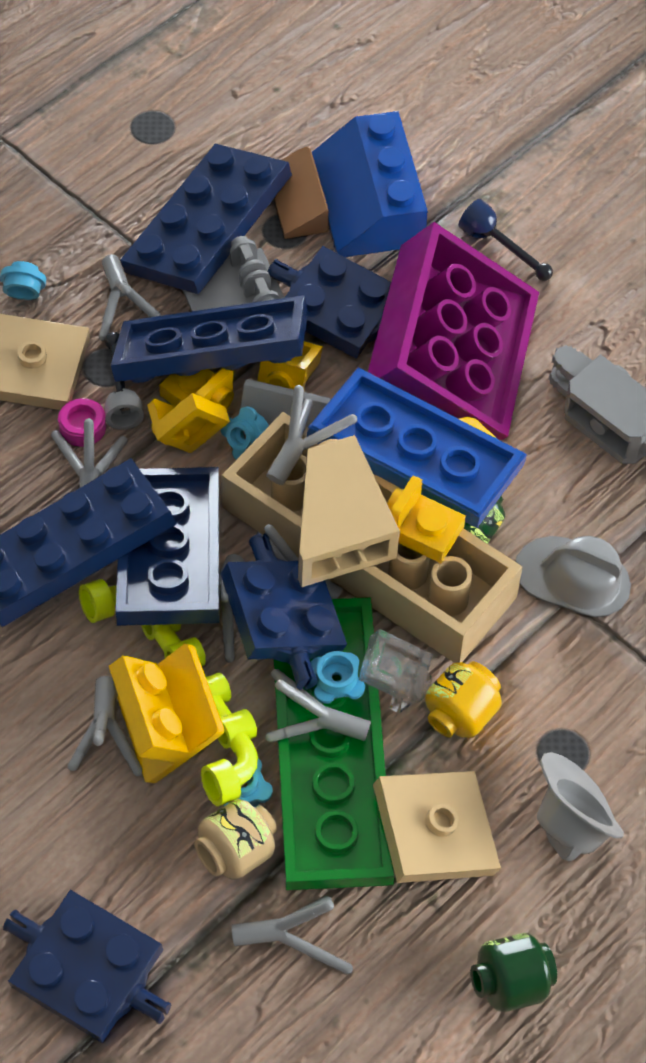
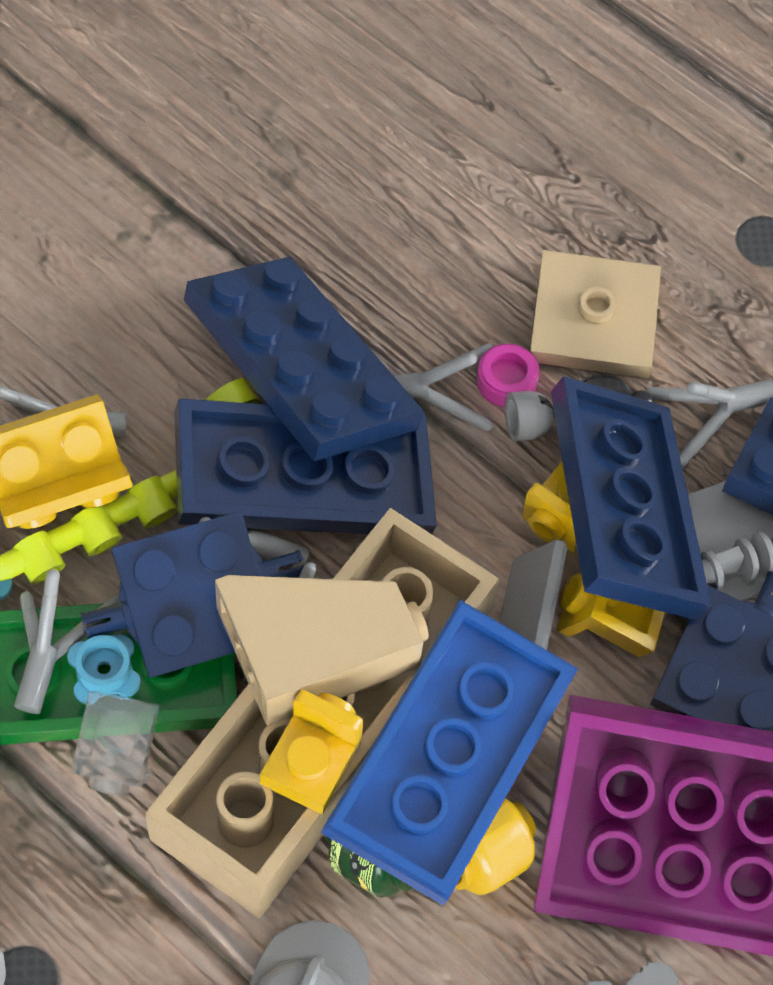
camera: 85 degrees right, 5 degrees up
(22, 280) = (716, 287): medium azure plate -> none
(188, 423) = (502, 477): yellow bracket -> none
(247, 421) = (500, 555): medium azure plate -> none
(295, 444) = (434, 582): light grey plant -> none
(463, 699) = (79, 834): yellow head -> none

